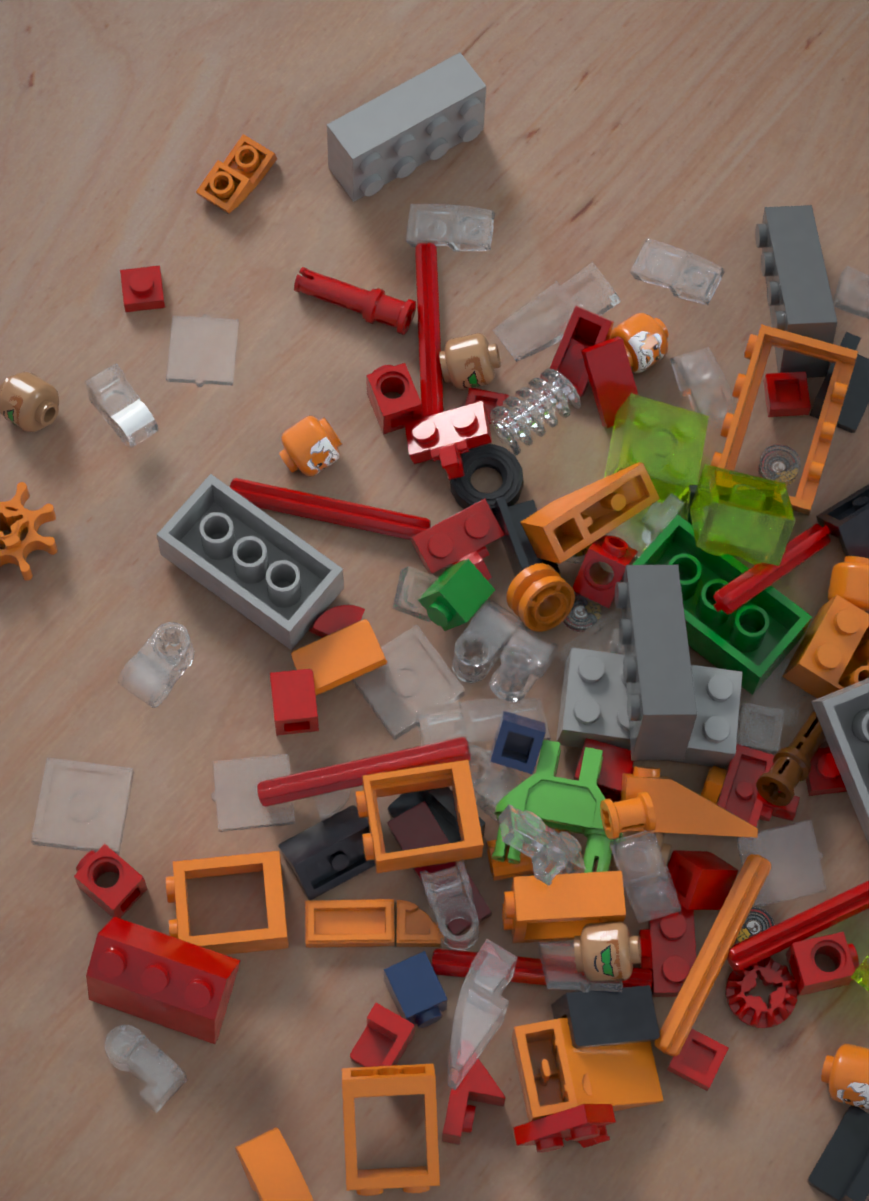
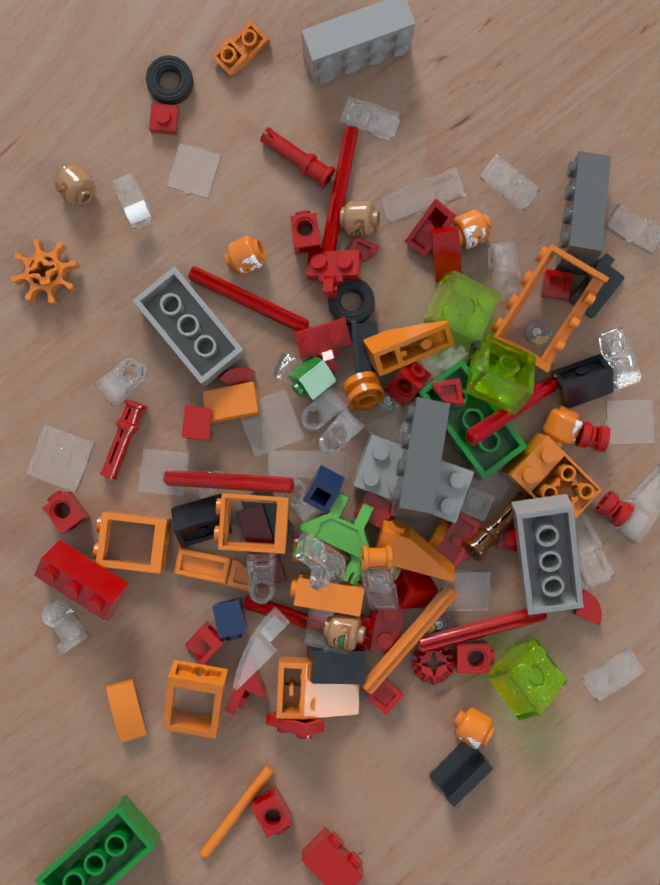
camera: 15 degrees right, 20 degrees up
(133, 214) = (158, 68): none -> black tyre
(181, 733) = (126, 427): none -> red pin
(532, 407) = (391, 260): clear piece -> none
(673, 553) = (449, 391): none -> red tile

